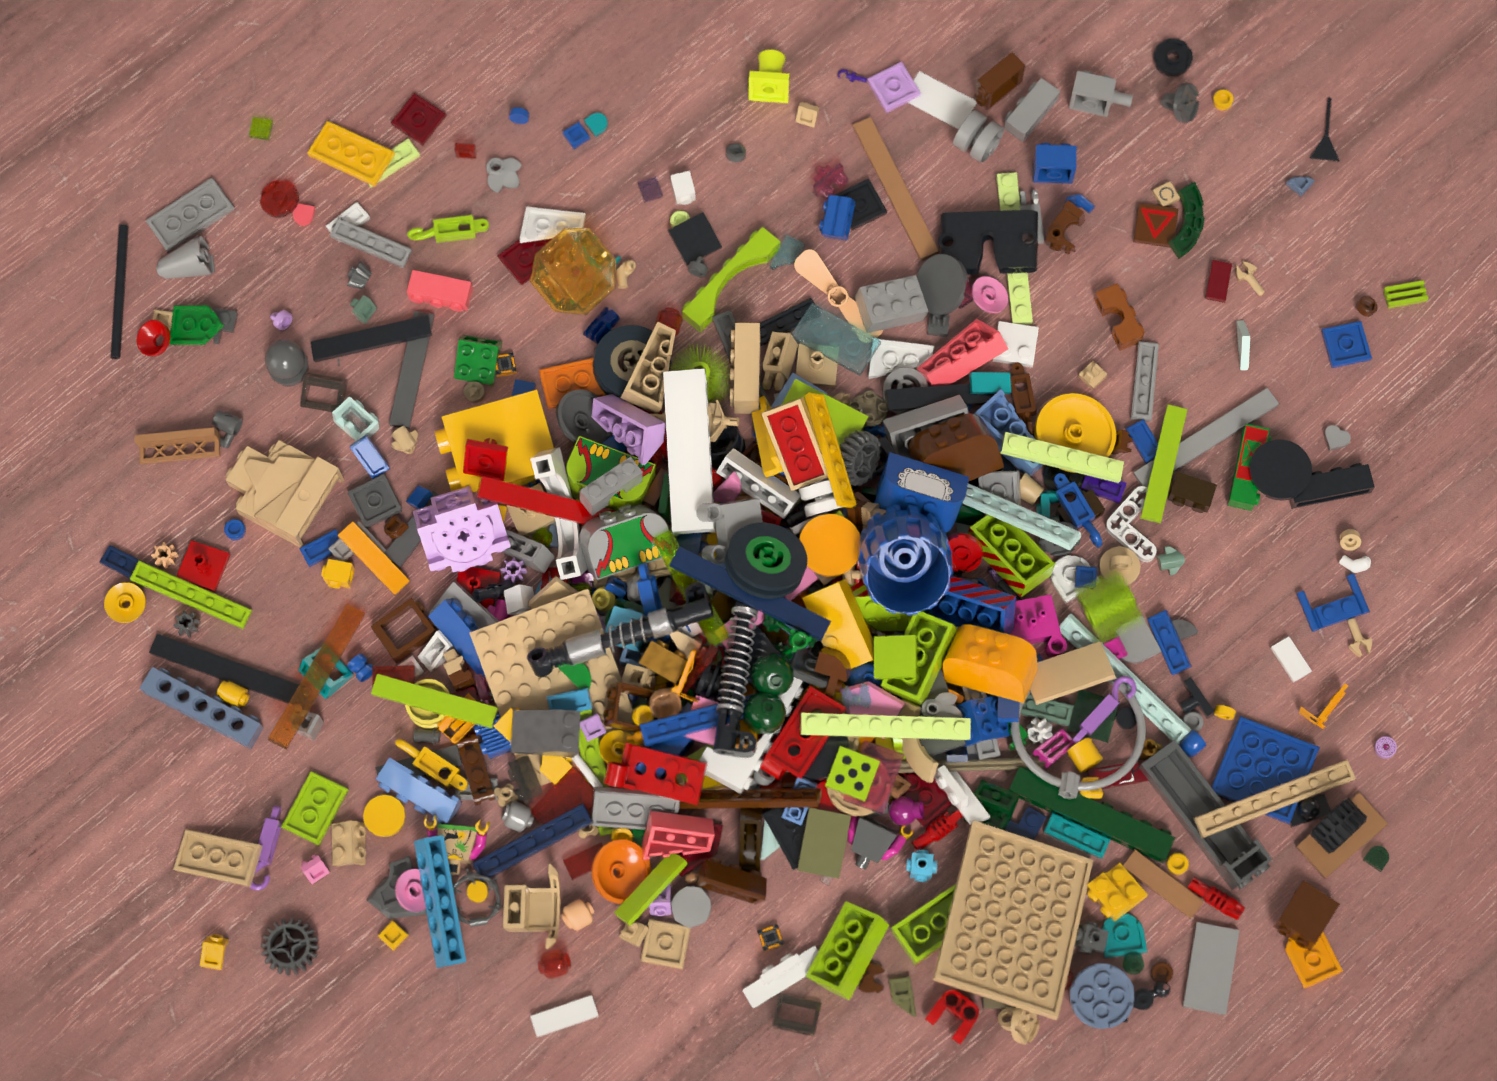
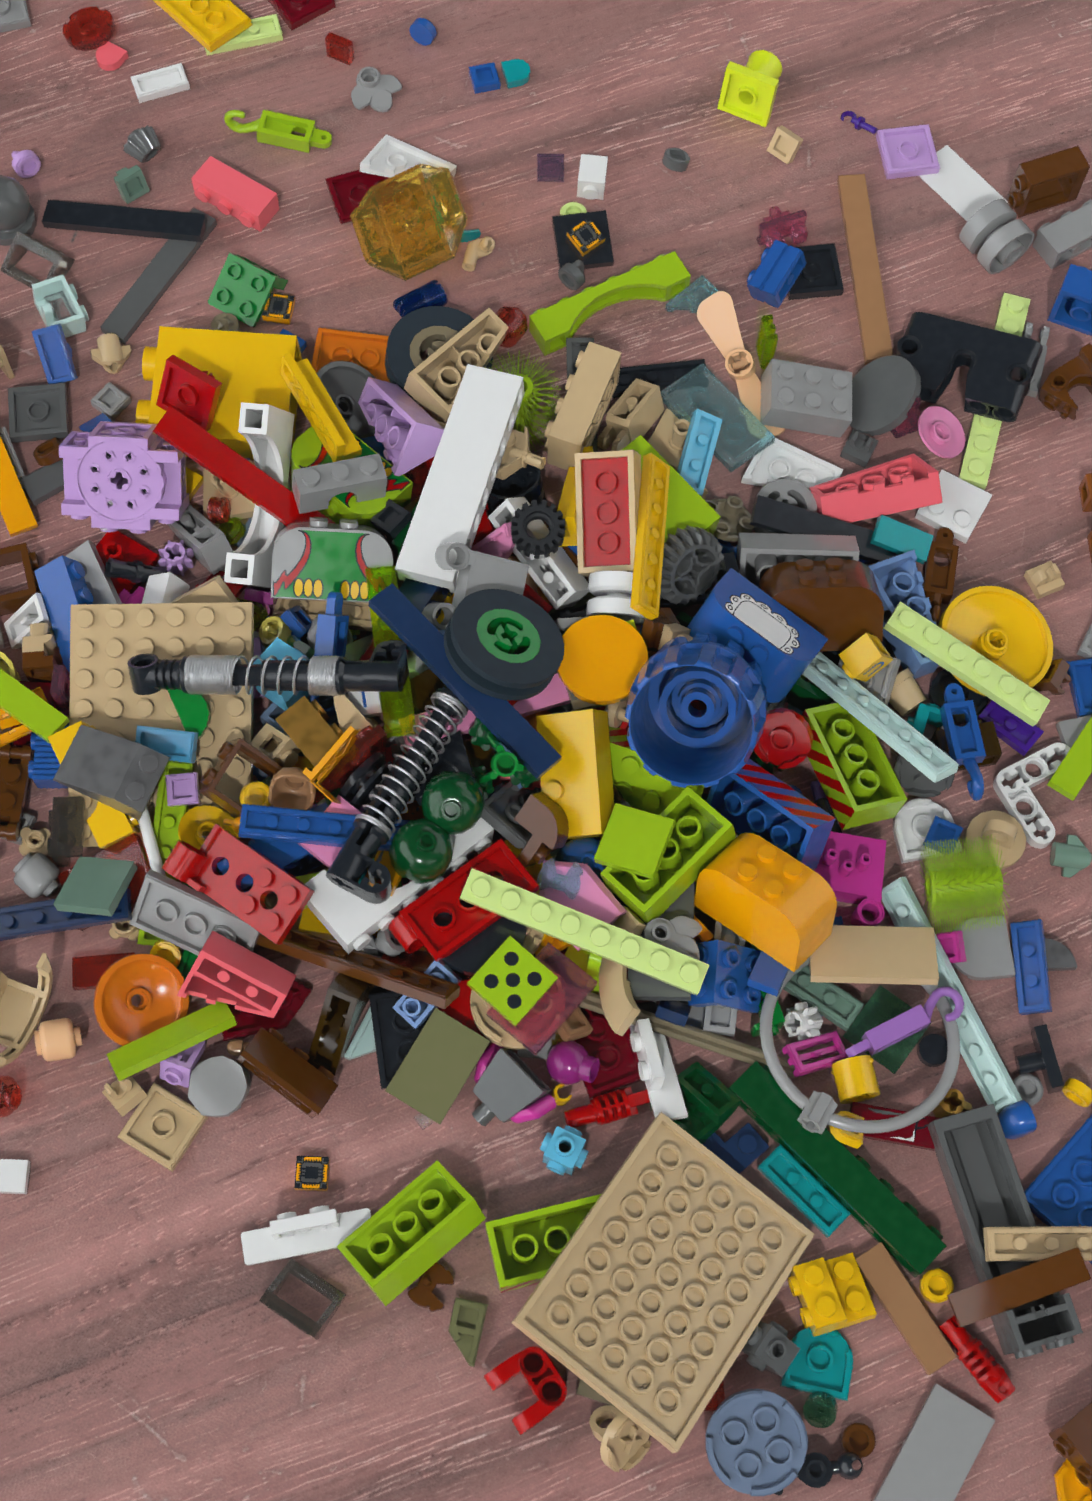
camera: 15 degrees right, 5 degrees down
(371, 243) = (176, 113): light grey tile -> none
(419, 474) = (110, 401): none -> light grey tile
(530, 528) = (218, 509): none -> clear red bush
(562, 809) = (95, 886): none -> sand green tile
(575, 437) = (319, 409): none -> yellow fence
(652, 495) = (391, 519): none -> black tile
(697, 237) = (585, 236): none -> tile
(755, 484) = (538, 512): none -> black tyre
(834, 371) = (699, 449): none -> medium azure plate
(848, 269) = (766, 341): none -> clear neon green tile
(996, 478) = (865, 657): none -> yellow brick
(1226, 846) = (1019, 1287): none -> reddish brown slope

